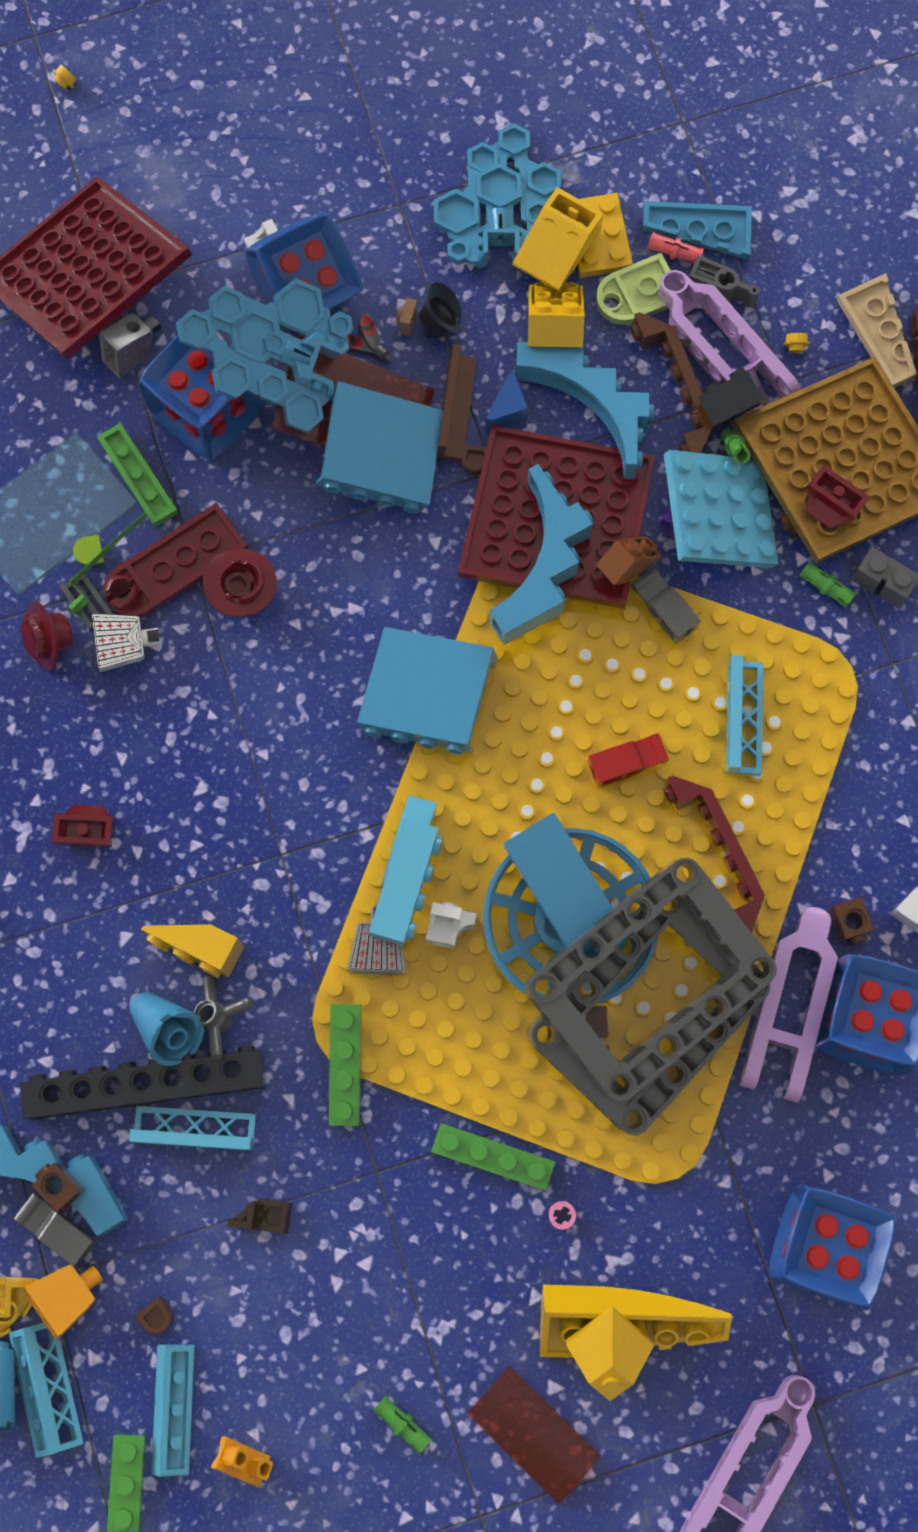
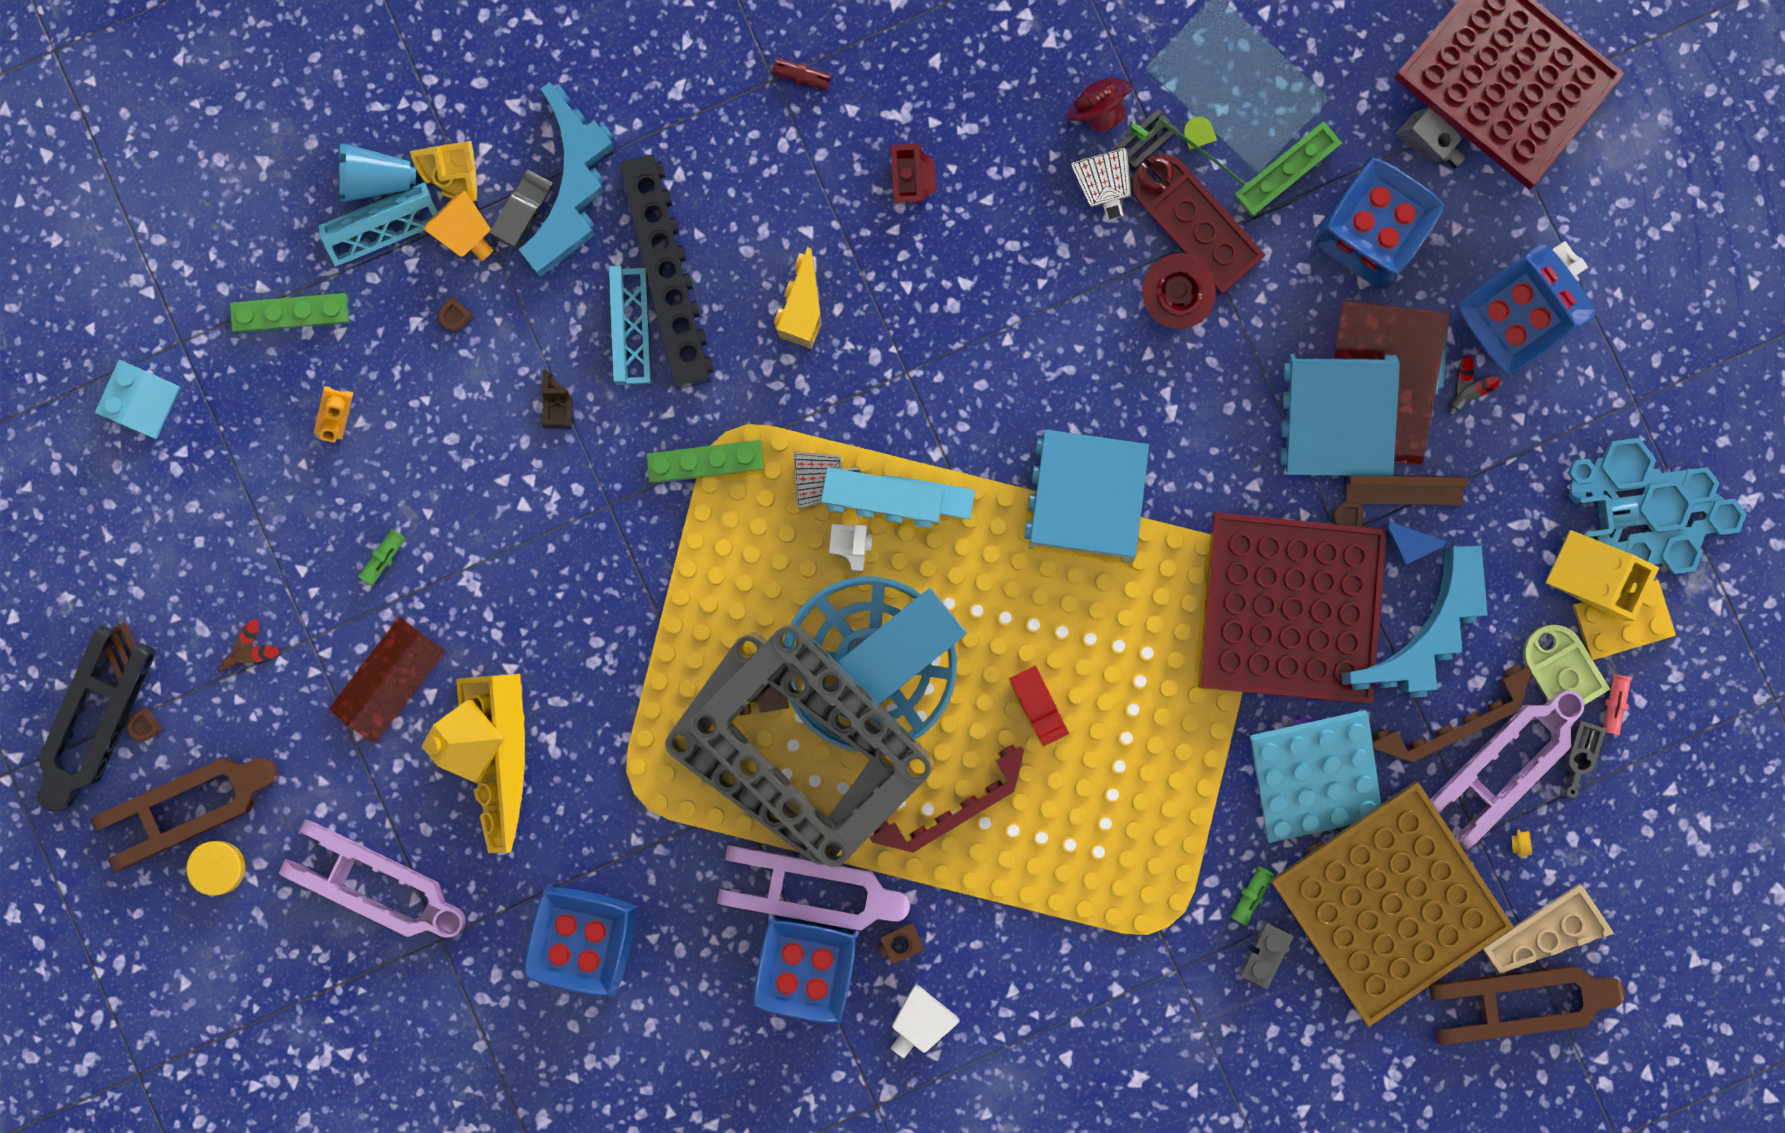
camera: 85 degrees right, 10 degrees up
(64, 77) = (1740, 18): yellow plate -> none
(71, 1187) = (558, 219): reddish brown brick -> none
(166, 1028) = (718, 284): dark azure cone -> none
(173, 1410) = (373, 344): medium azure slope -> none
(217, 1017) = (735, 328): dark grey bar -> none
(258, 338) = (1431, 273): dark azure piece -> none
(407, 316) = (1500, 426): medium nougat plate -> none
(440, 312) = (1510, 462): black piece -> none
(493, 1157) = (634, 614): bright green plate -> none
(540, 596) = (1273, 614): dark azure arch -> none
(555, 315) = (1517, 583): yellow slope -> none
(565, 1224) = (580, 690): bright pink bush -> none
(628, 559) = (1246, 685): dark orange slope -> none
(666, 605) = (1207, 728): dark grey piece -> none
(704, 225) = (1648, 731): dark azure wing -> none
(733, 397) = (1439, 778): black brick -> none
(735, 445) = (1390, 786): bright green pin -> none
(735, 713) = (1093, 809): medium azure fence -> none
(833, 498) = (1338, 891): dark red slope -> none

